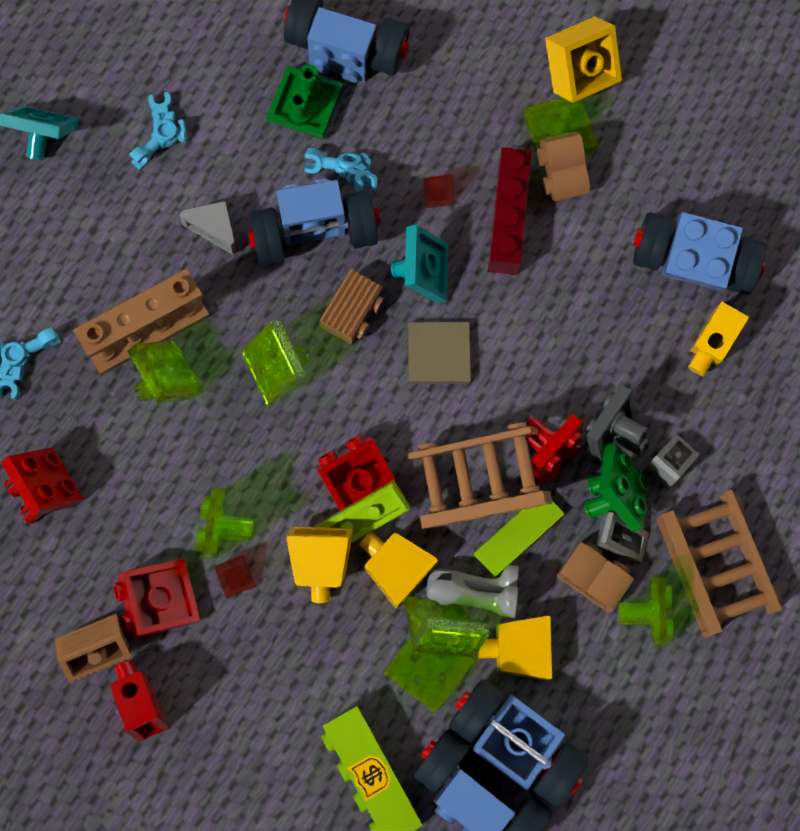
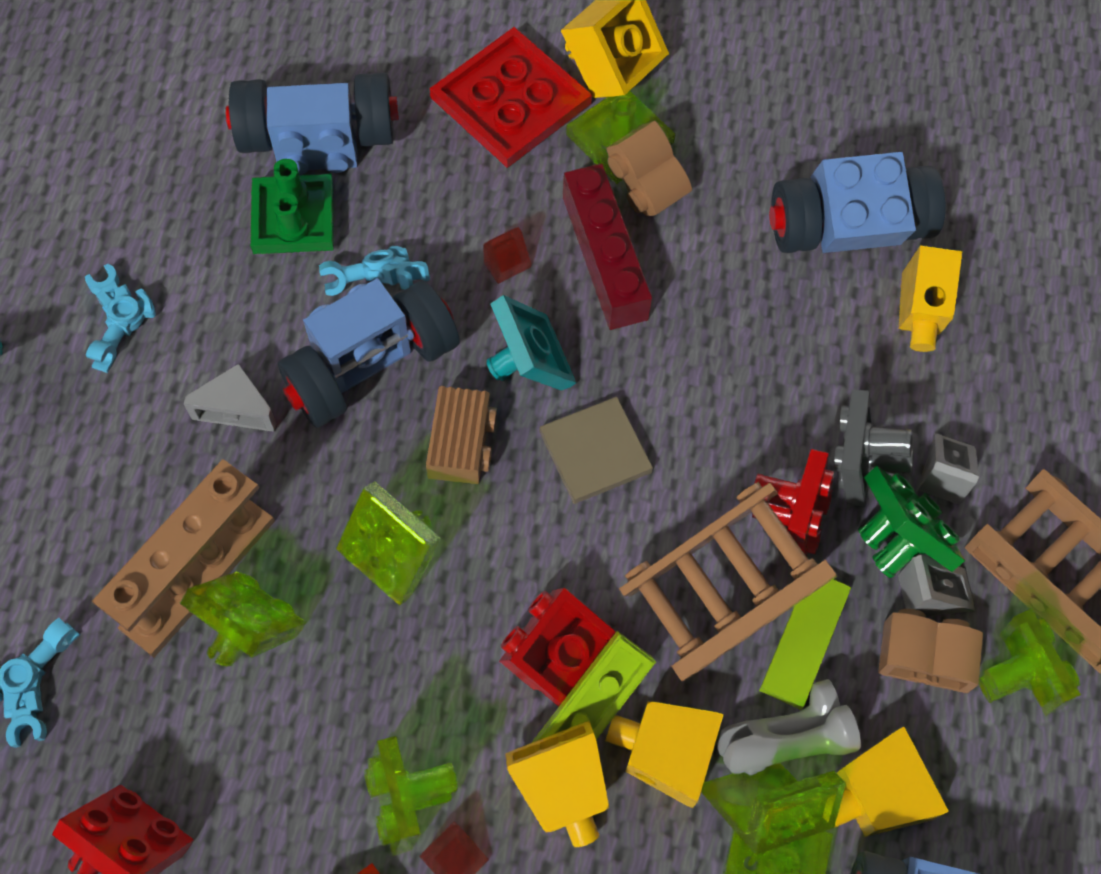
camera: 20 degrees left, 10 degrees down
(494, 69) = (510, 96): none -> red plate

